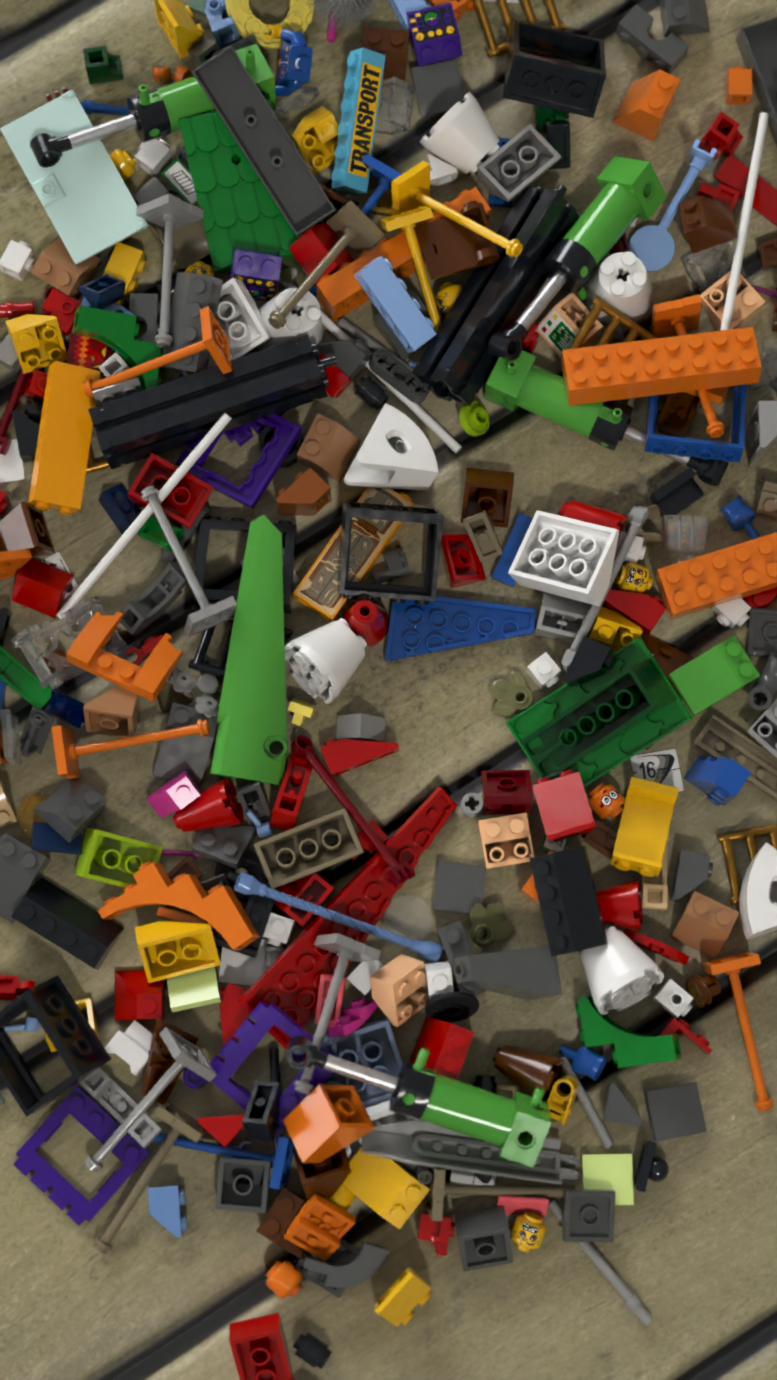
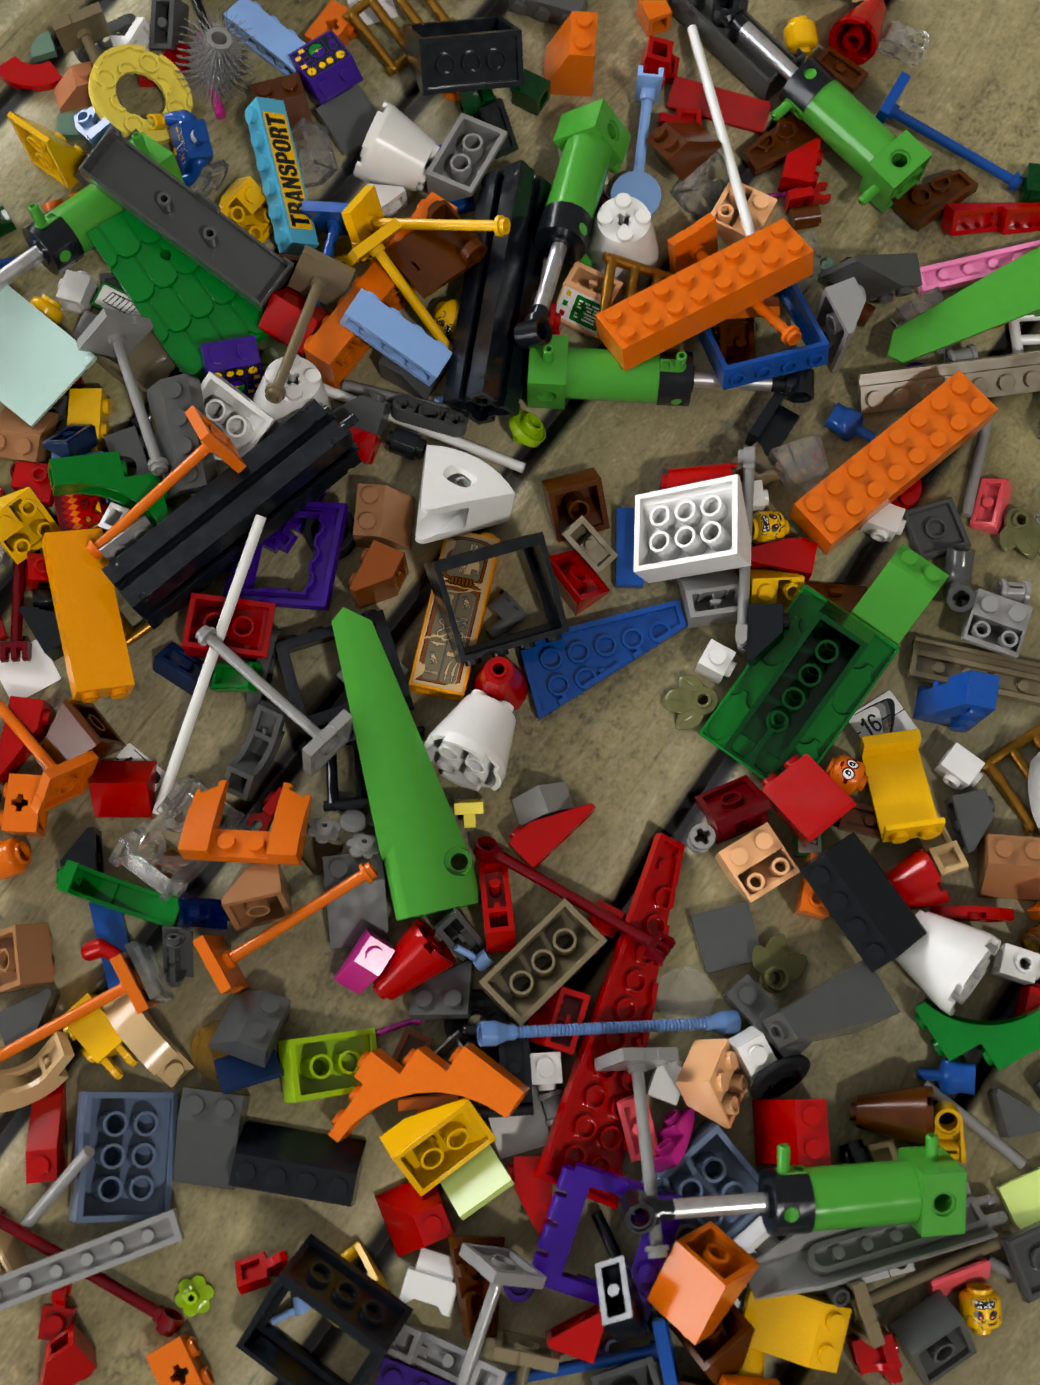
camera: 20 degrees left, 5 degrees down
(604, 121) = (533, 95): none -> dark green brick
(699, 832) = (959, 767): none -> white brick

